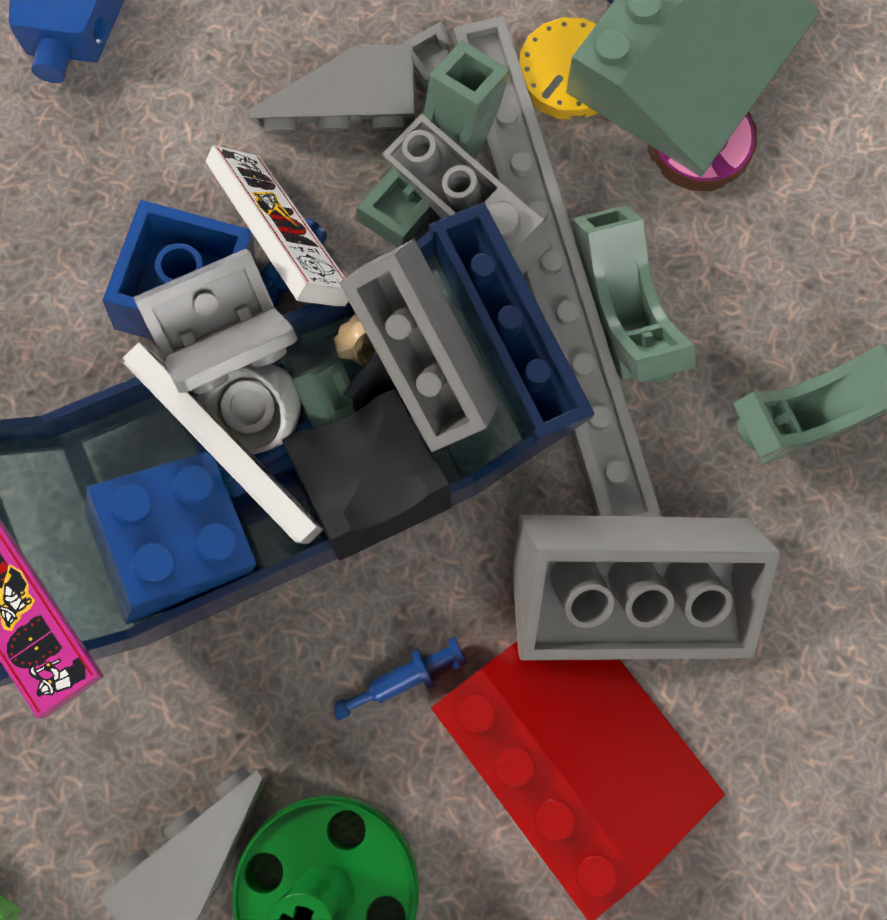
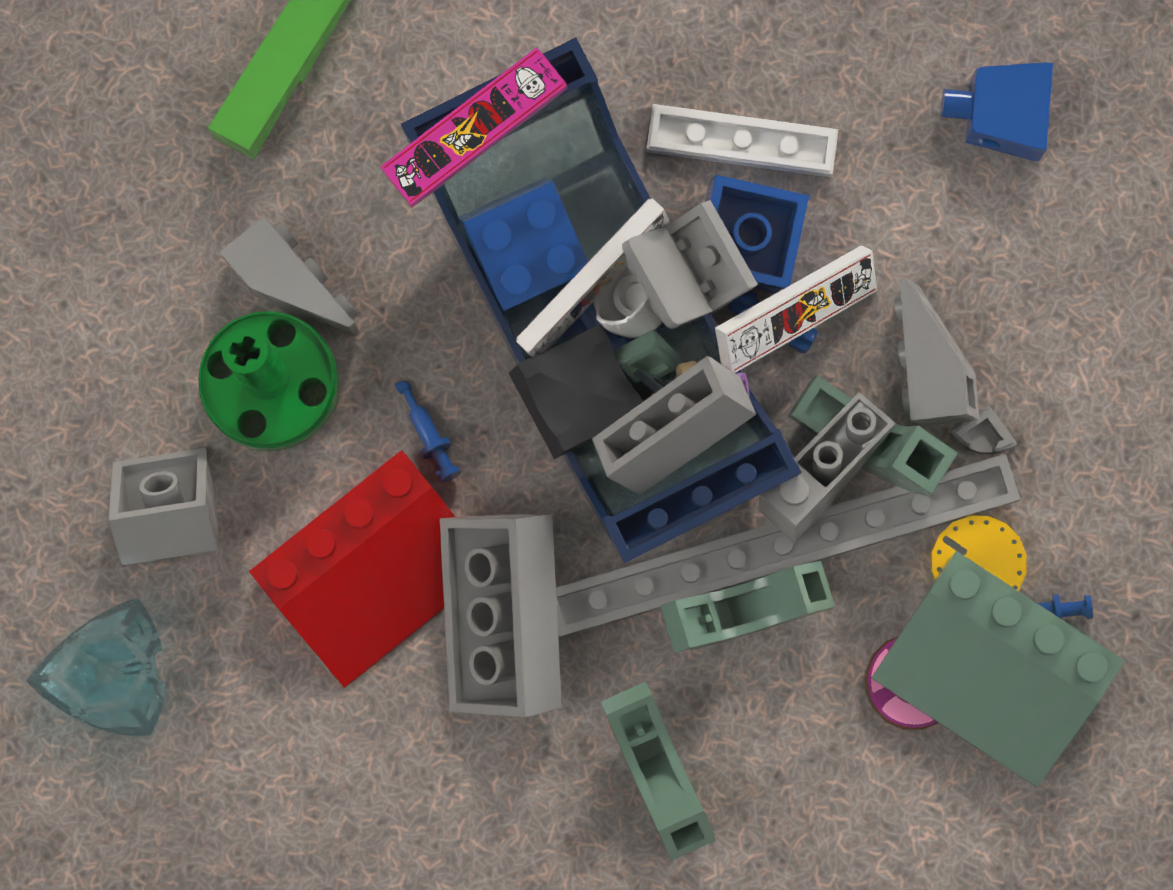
camera: 90 degrees right, 5 degrees up
(67, 296) = (742, 140): none -> white tile

